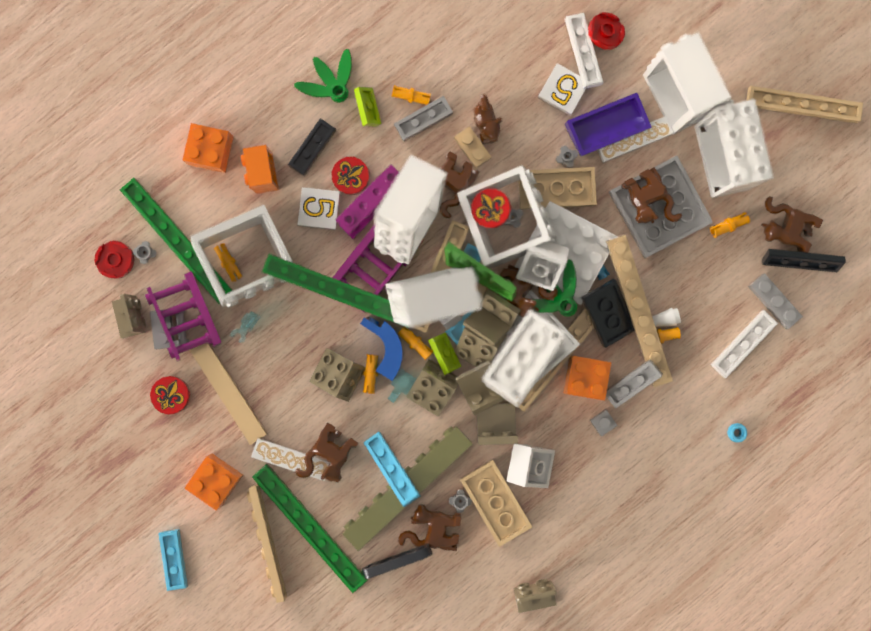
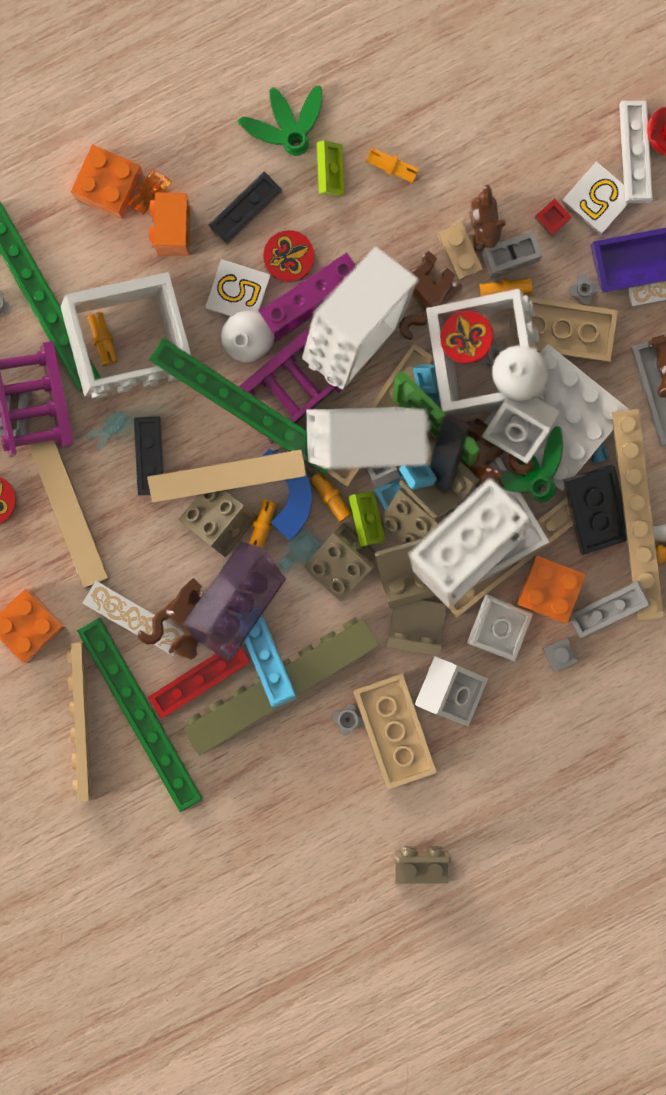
camera: 15 degrees right, 0 degrees up
(242, 141) = (152, 183): none -> clear orange plate
(278, 339) = (148, 451): none -> black tile
(331, 240) = (246, 336): none -> white cylinder
(337, 343) = (227, 475): none -> tan tile
(347, 494) = (196, 682): none -> red plate
(361, 433) = (235, 600): none -> clear purple slope
(397, 561) = (248, 780): black beam -> none
(423, 118) = (402, 199): light grey plate -> none
(436, 531) = (308, 751): reddish brown animal -> none
(467, 243) = (426, 377): none -> medium azure plate
(476, 317) = (418, 475): none -> medium azure plate
(494, 295) = (448, 451): none -> black tile
(498, 170) = (524, 285): none -> light orange pin
(510, 142) = (512, 254): none -> light grey brick
(534, 109) = (553, 217): none -> red plate
(535, 226) = (520, 373): none -> white cylinder
(556, 412) = (500, 627): none -> white tile

